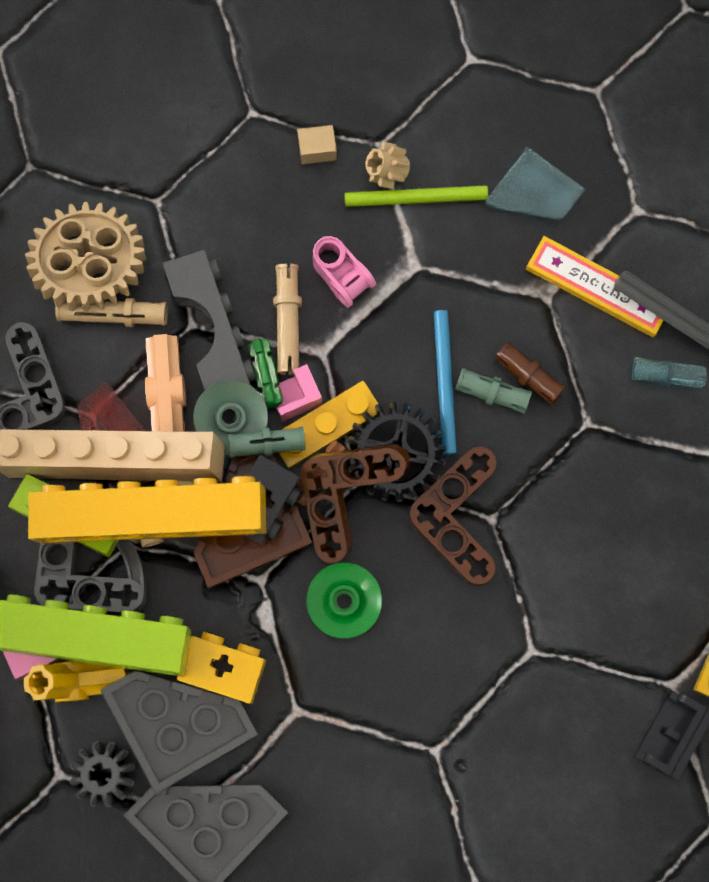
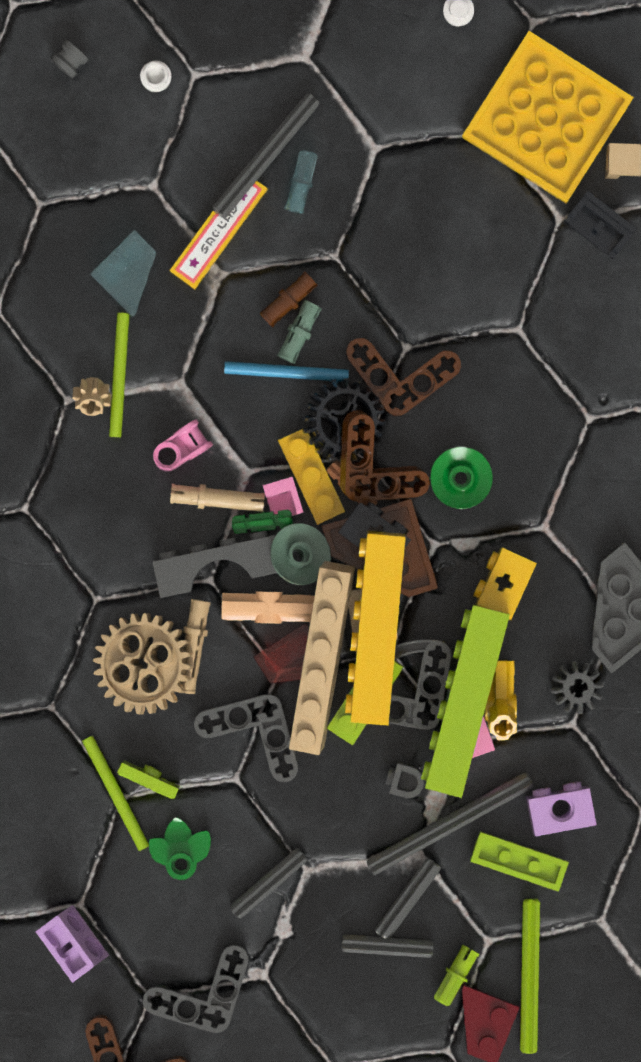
camera: 80 degrees left, 10 degrees up
(174, 725) = (546, 625): dark grey plate -> none
(266, 442) = (325, 548): sand green pin -> none
(317, 144) = (61, 455): tan slope -> none

